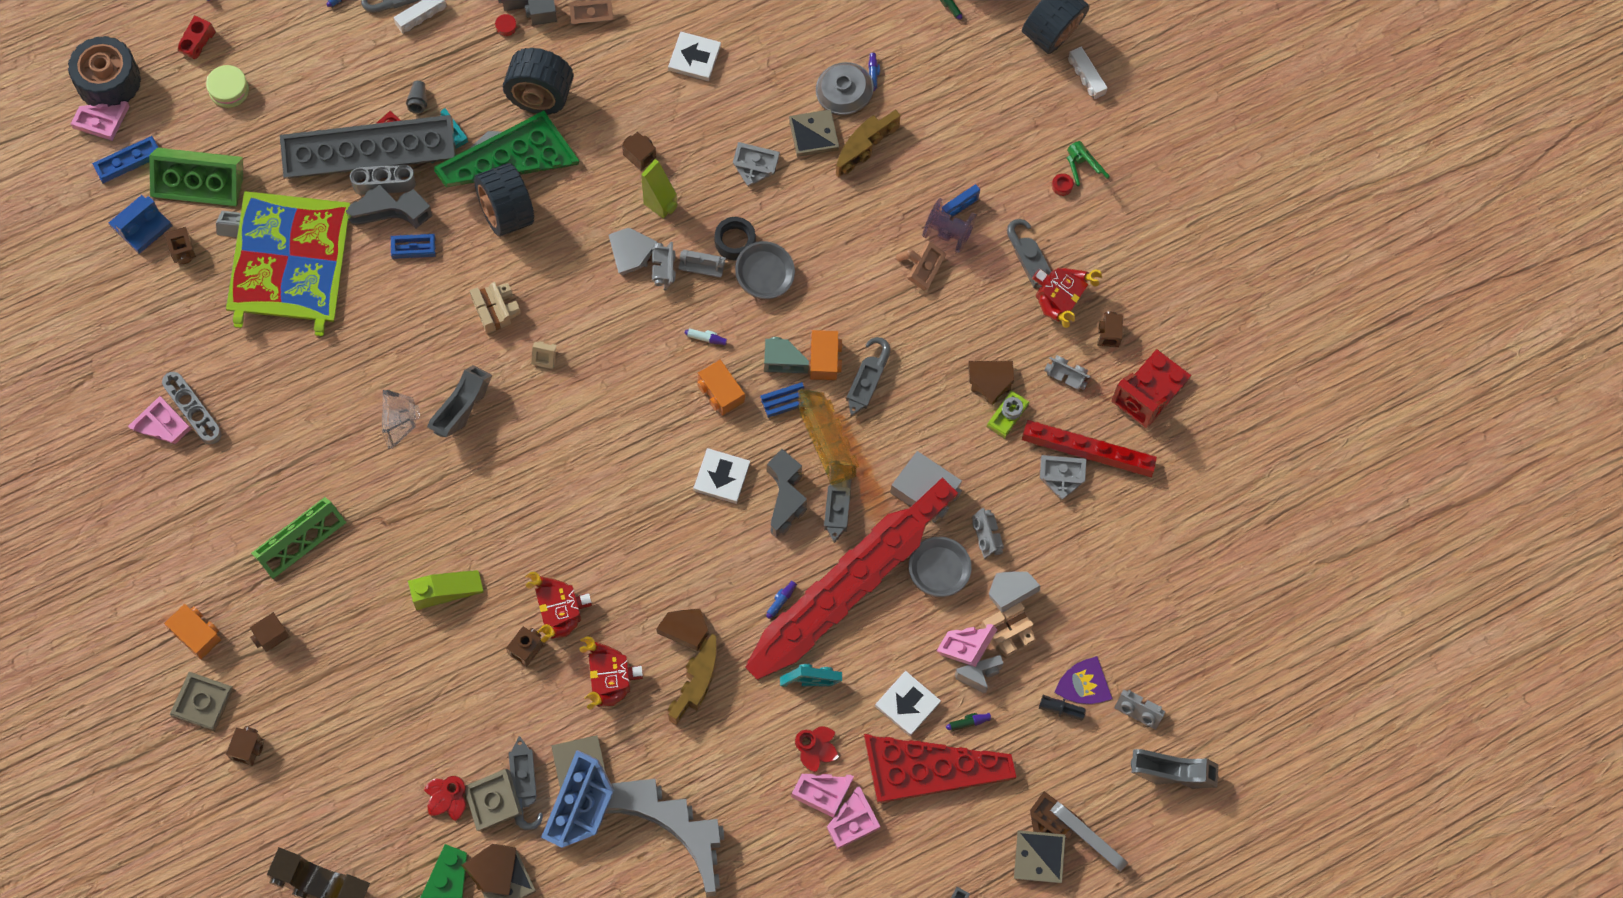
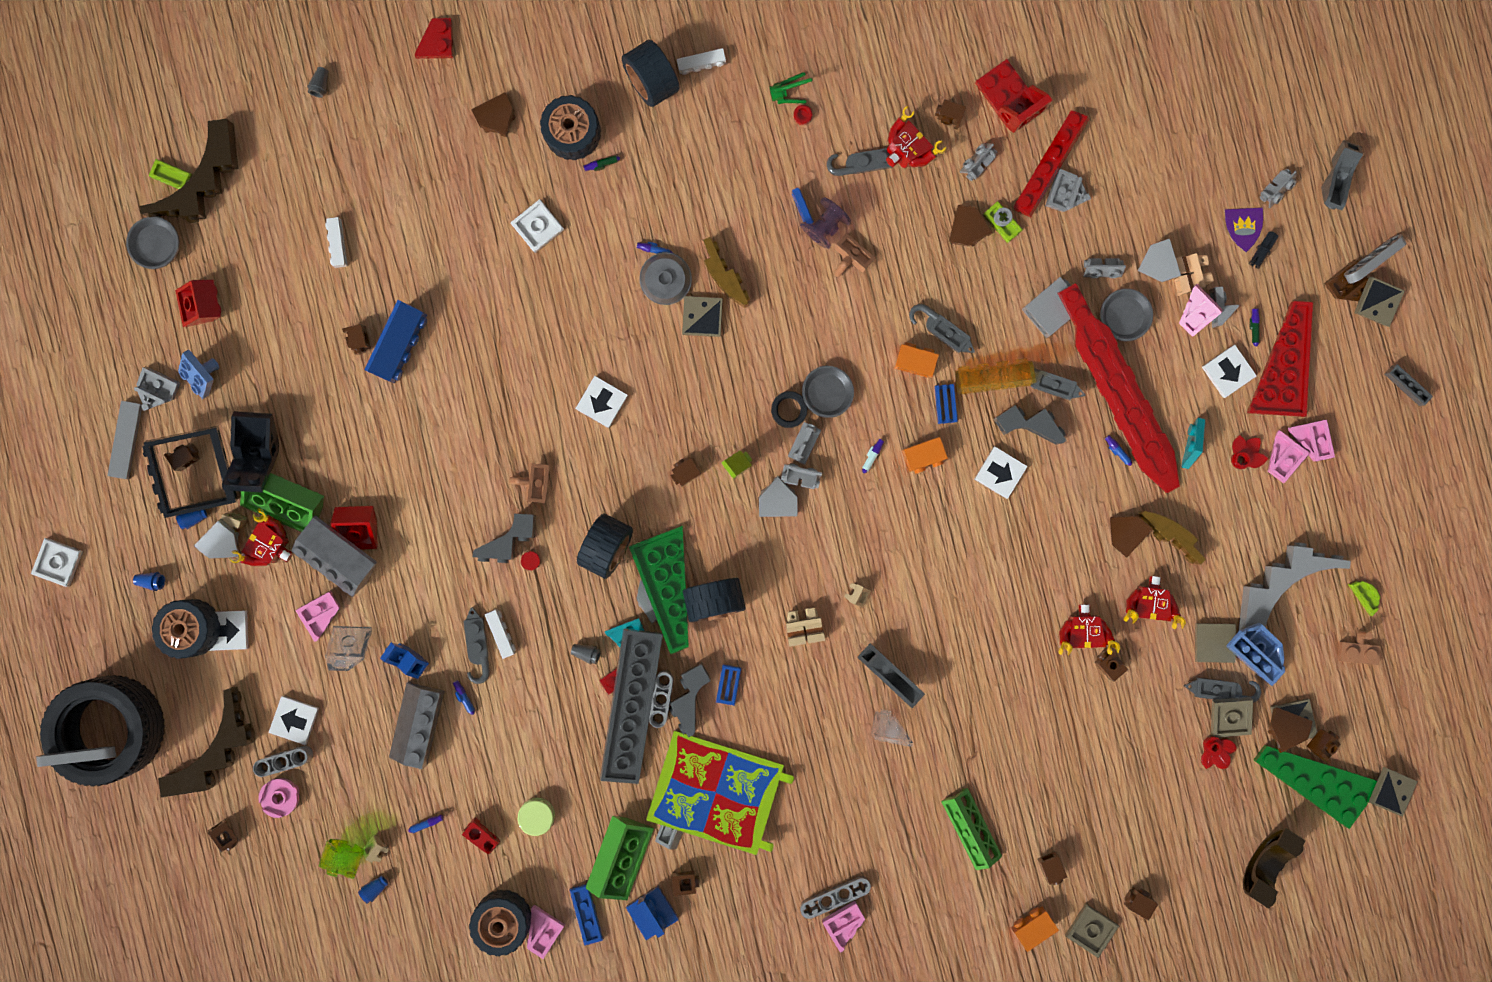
camera: 70 degrees left, 20 degrees up
(444, 587) = (1045, 720): lime slope -> none
(755, 162) = (719, 375): light grey slope -> none
(784, 357) = (909, 396): sand green slope -> none

